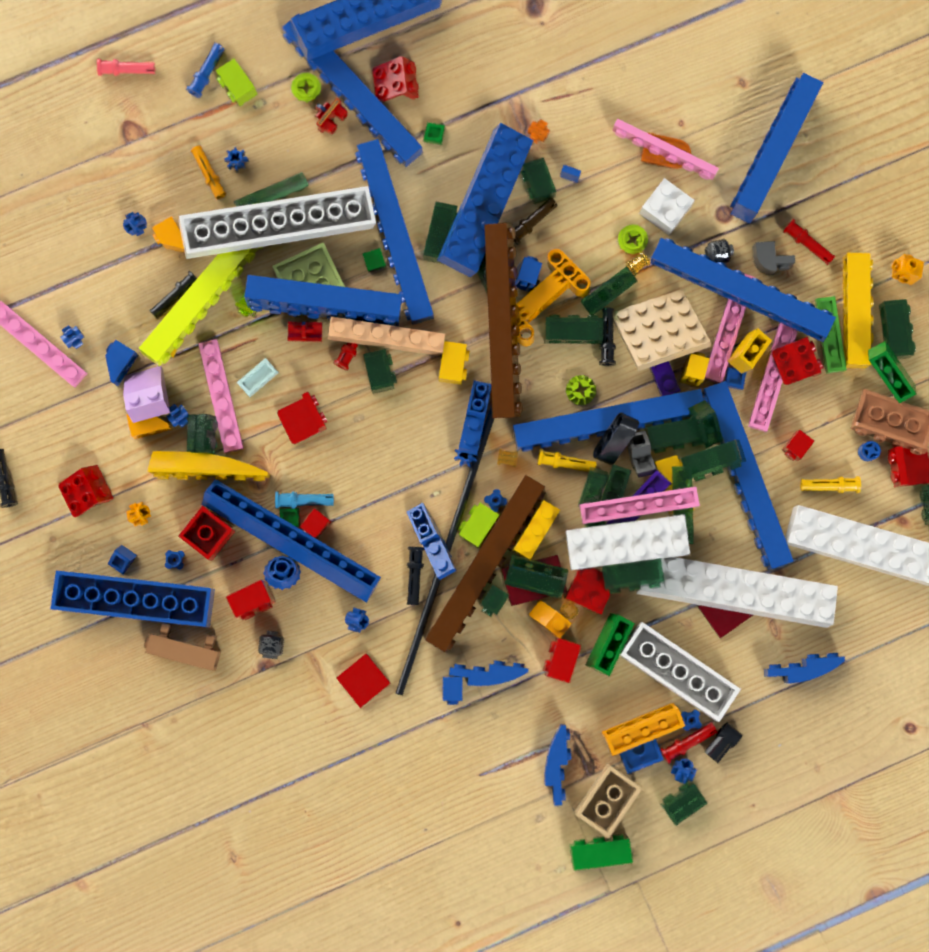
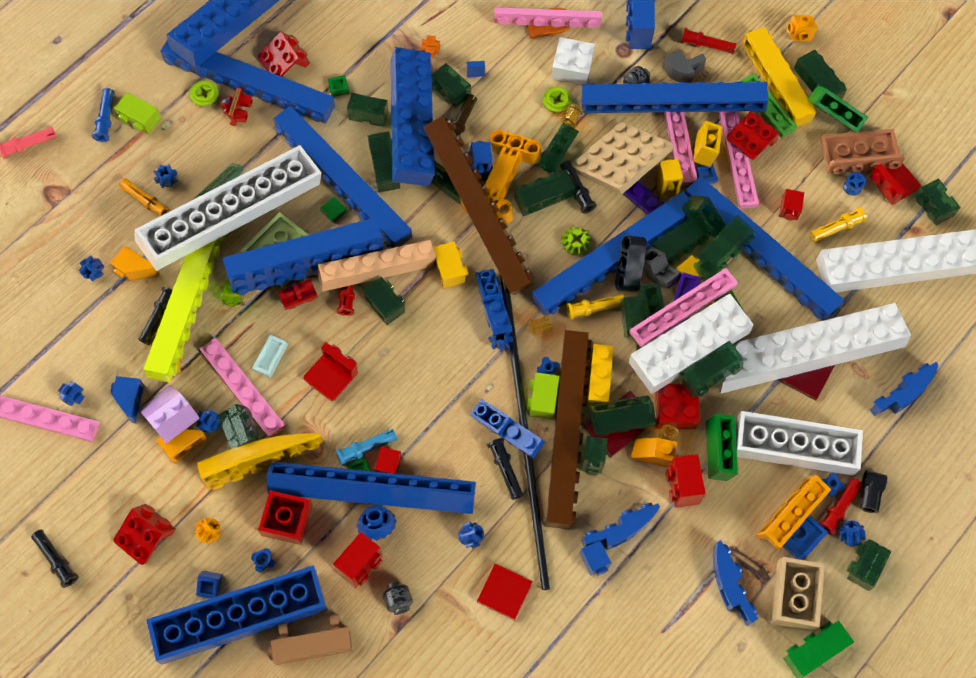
camera: 25 degrees left, 15 degrees down
(449, 172) = (367, 109): none -> clear green brick

